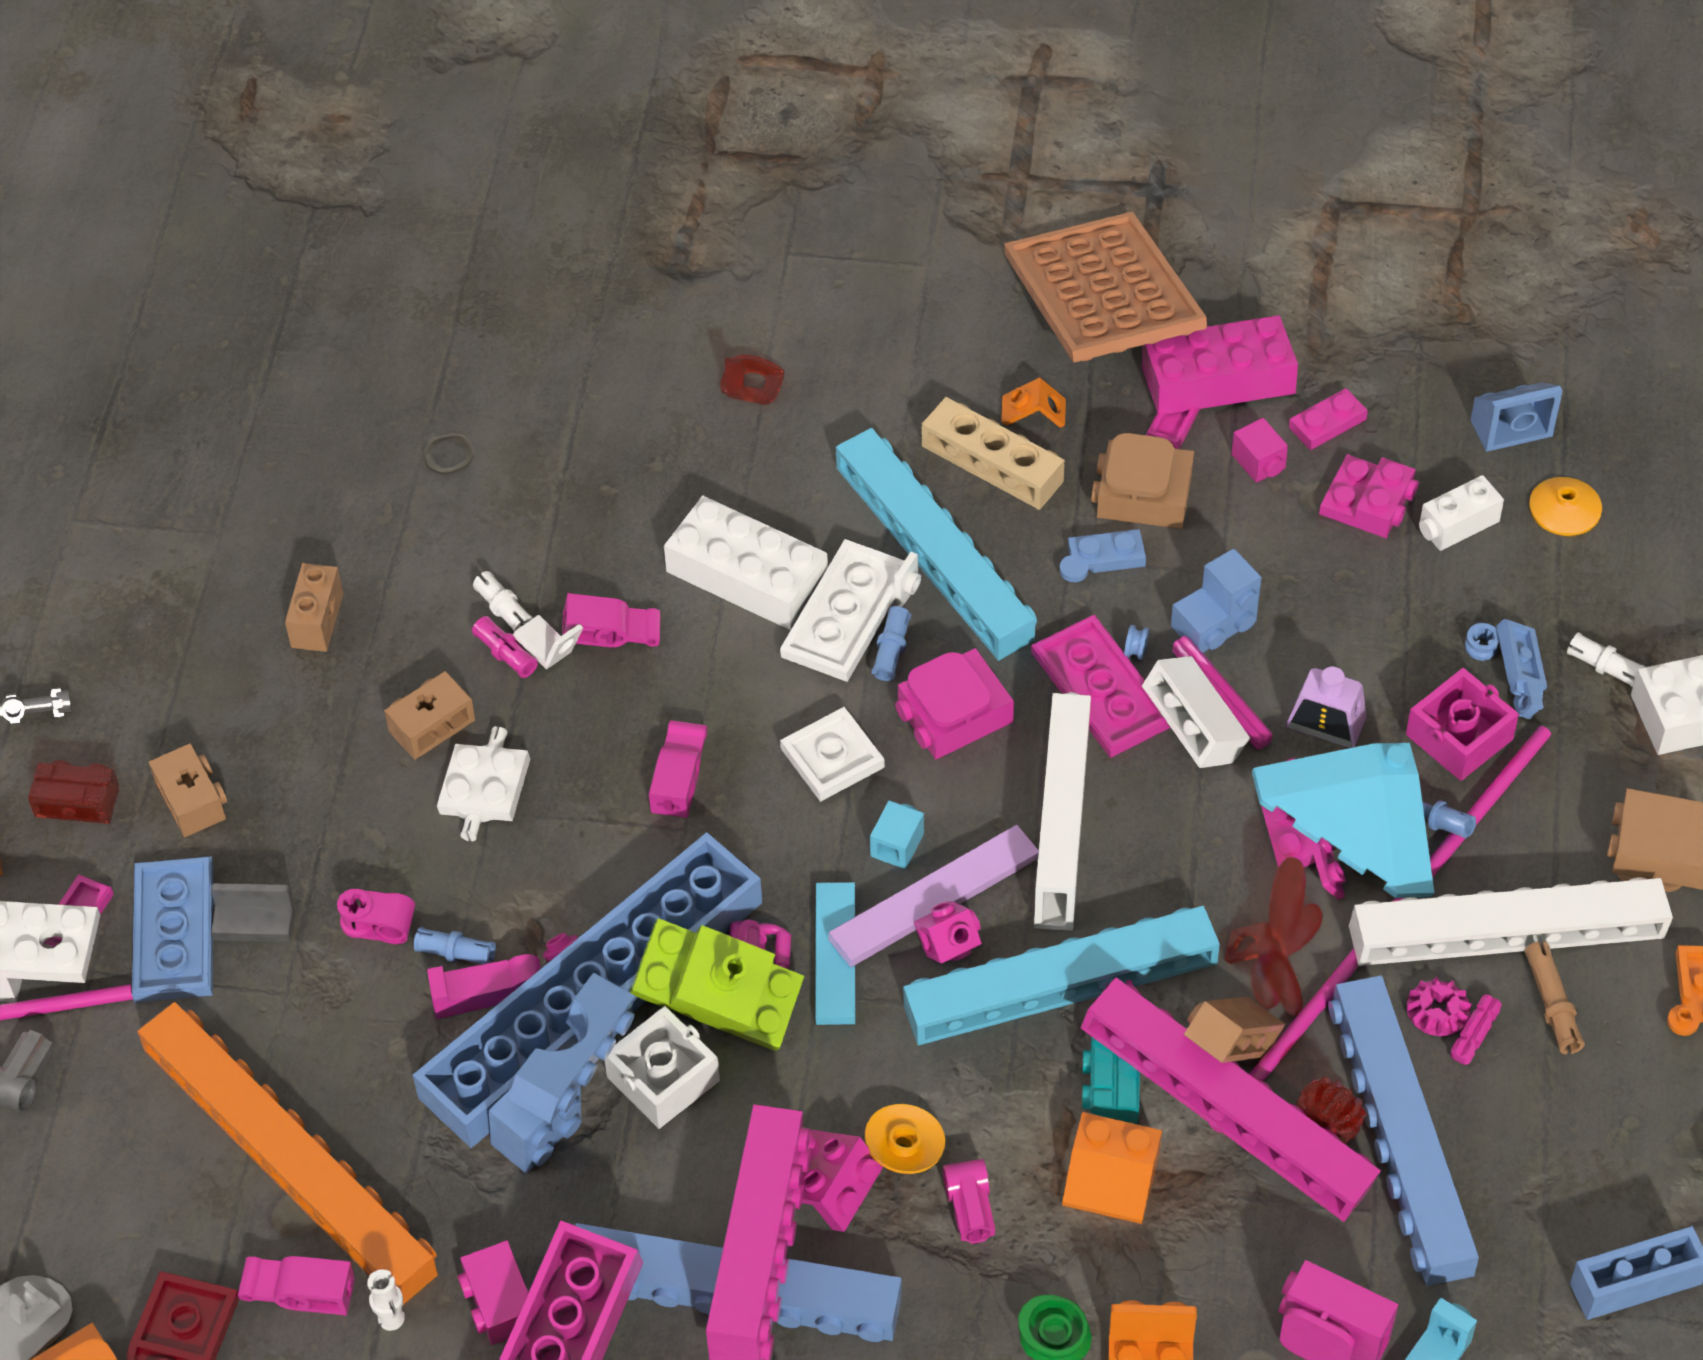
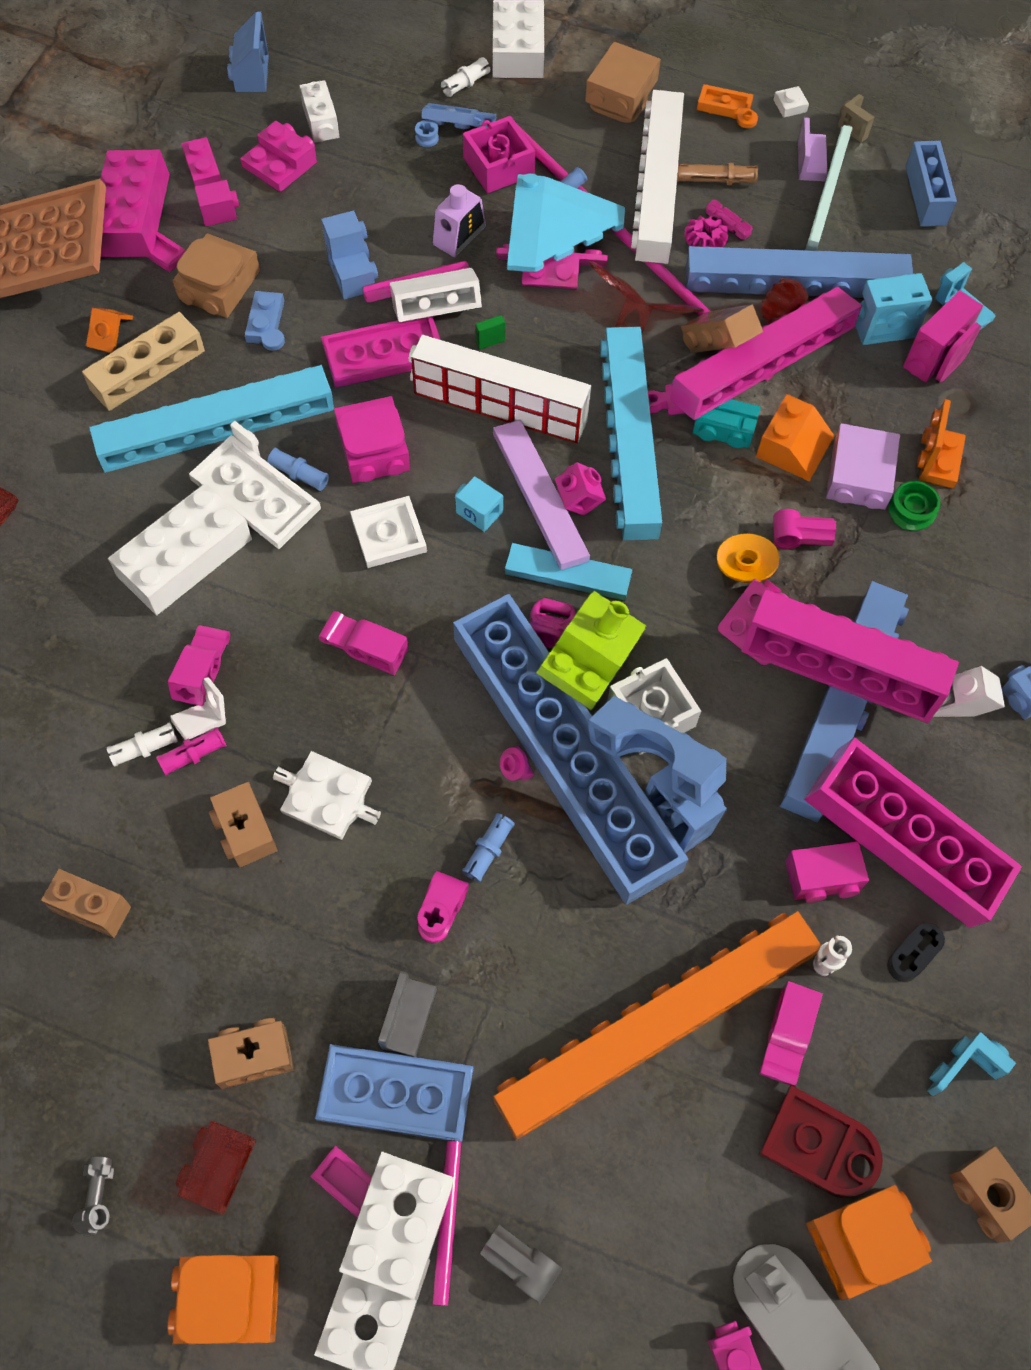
camera: 80 degrees left, 10 degrees up
(479, 985) = (533, 832): dark pink leg -> none
(1092, 1254) = (863, 466): none -> lavender brick
(1136, 642) = (357, 316): medium blue bush -> none
(1162, 786) = (490, 332): none -> green tile
(1365, 1240) = (893, 308): none -> medium azure piece
(1562, 516) = (330, 64): light orange dish -> none
(1575, 1144) = (828, 189): none -> light aqua tile
(1647, 1112) = (811, 154): none -> lavender panel

